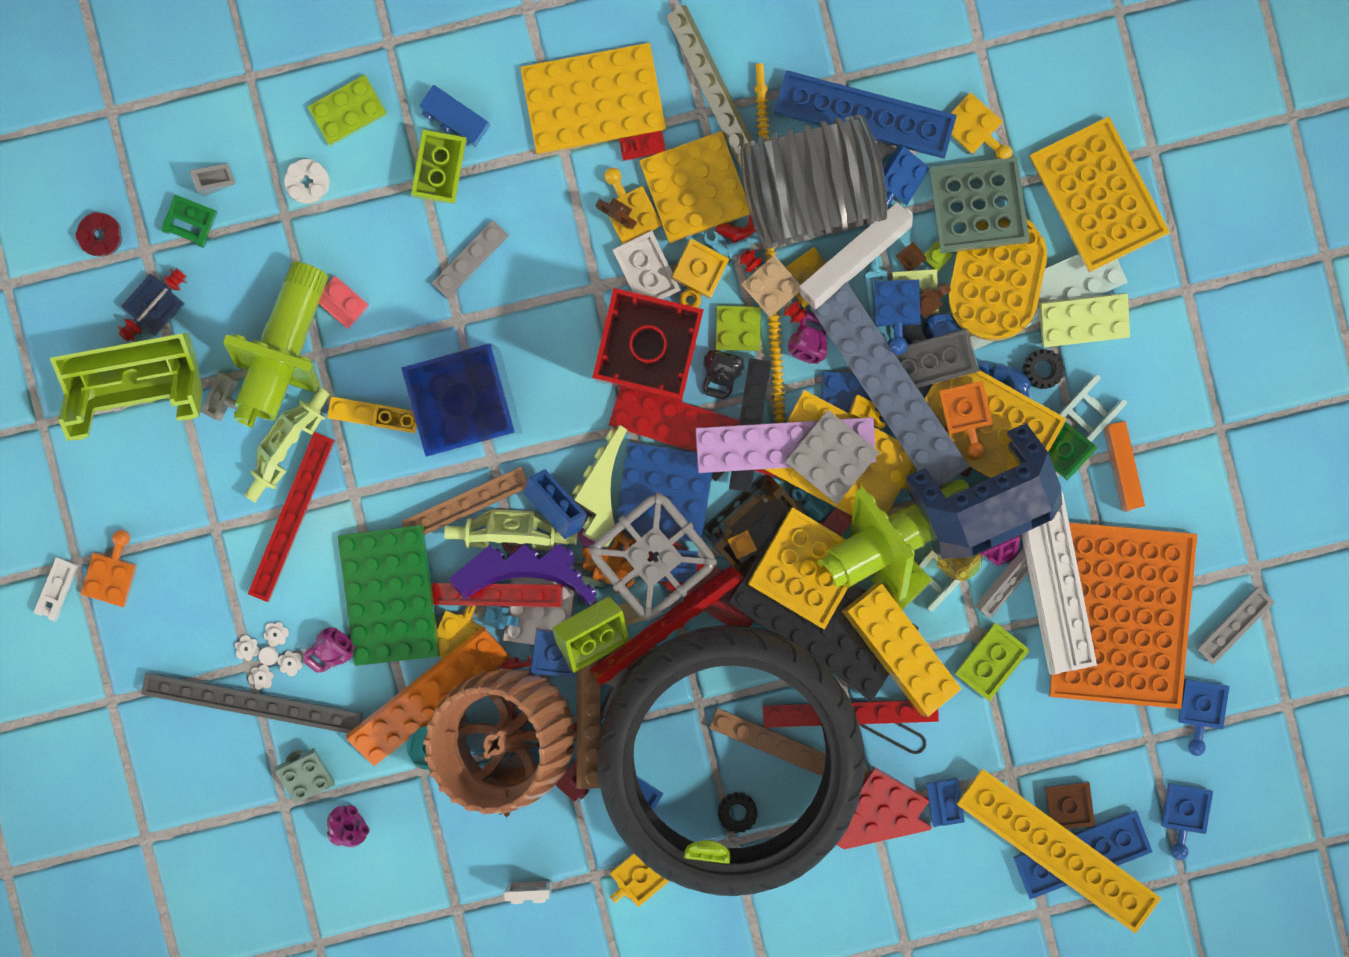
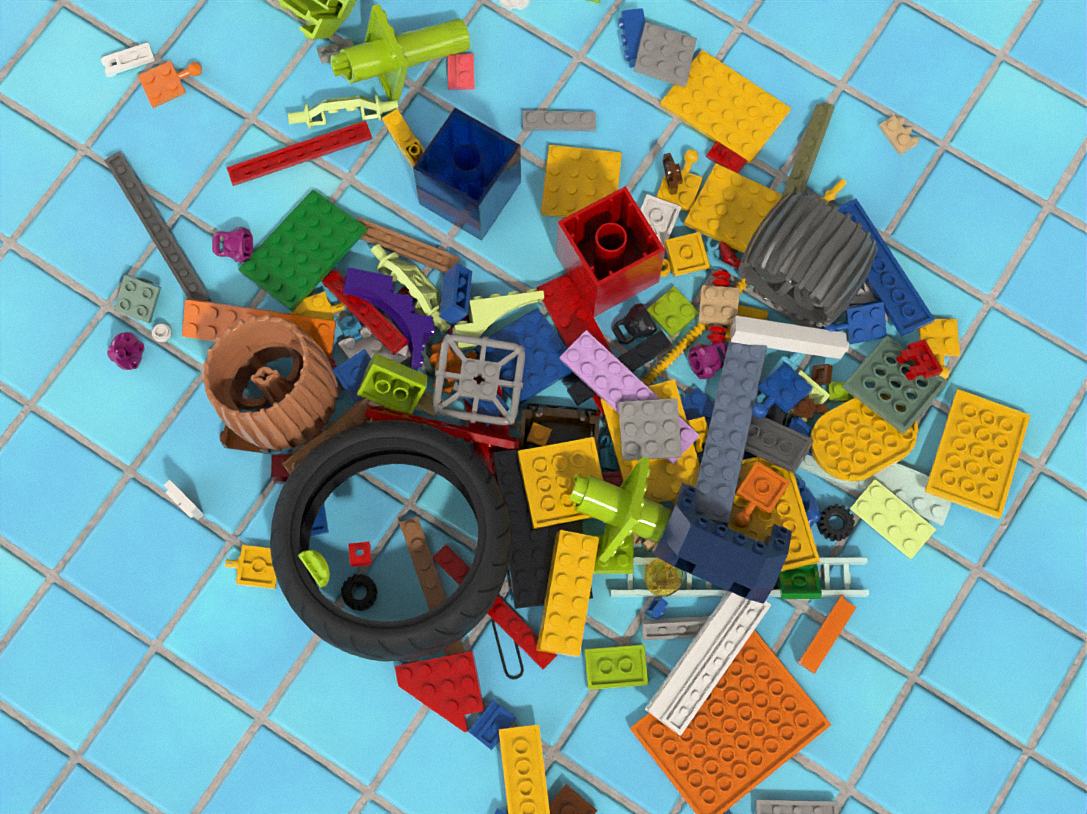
camera: 45 degrees right, 15 degrees down
(268, 655) = (197, 215): white plant -> none
(354, 780) = (161, 333): none -> white plate
(438, 167) = (595, 51): lime slope -> none
(498, 108) = (665, 54): none -> light grey plate
(548, 295) = (578, 179): none -> yellow plate
(731, 799) = (363, 560): none -> red plate
(976, 585) = (656, 608): none -> blue plate
(980, 159) = (924, 359): none -> red plate
(1003, 552) = (695, 598): magenta wing -> none

